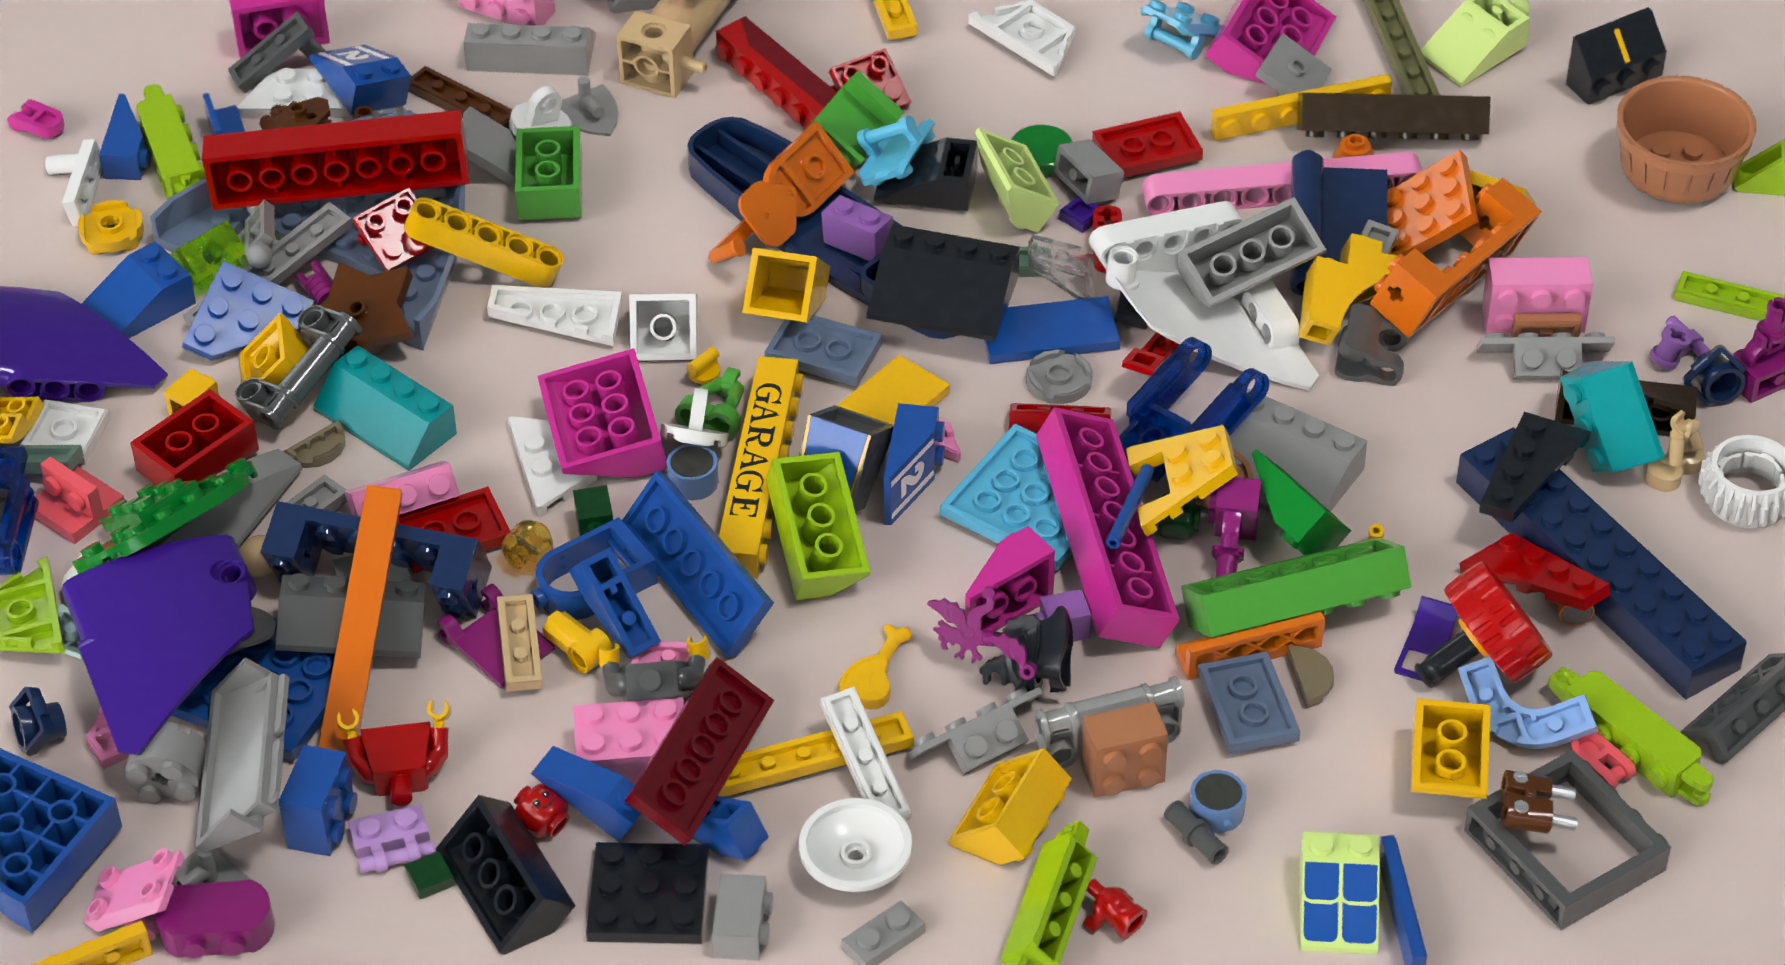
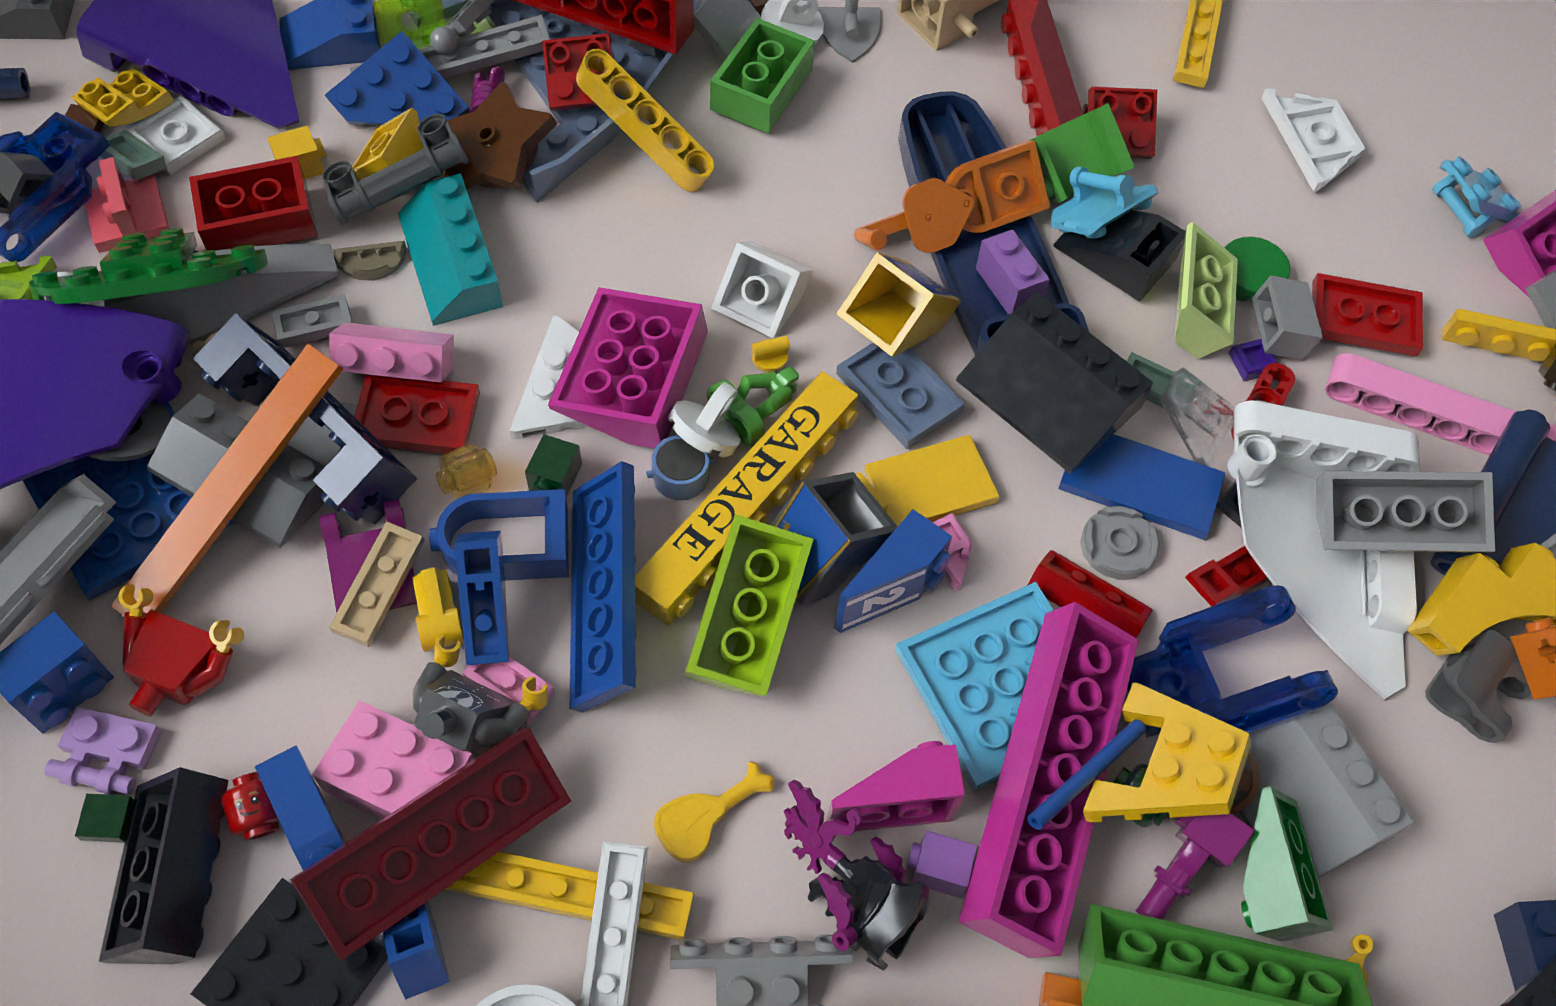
camera: 25 degrees right, 15 degrees up
(570, 312) = (683, 226): white wing -> none

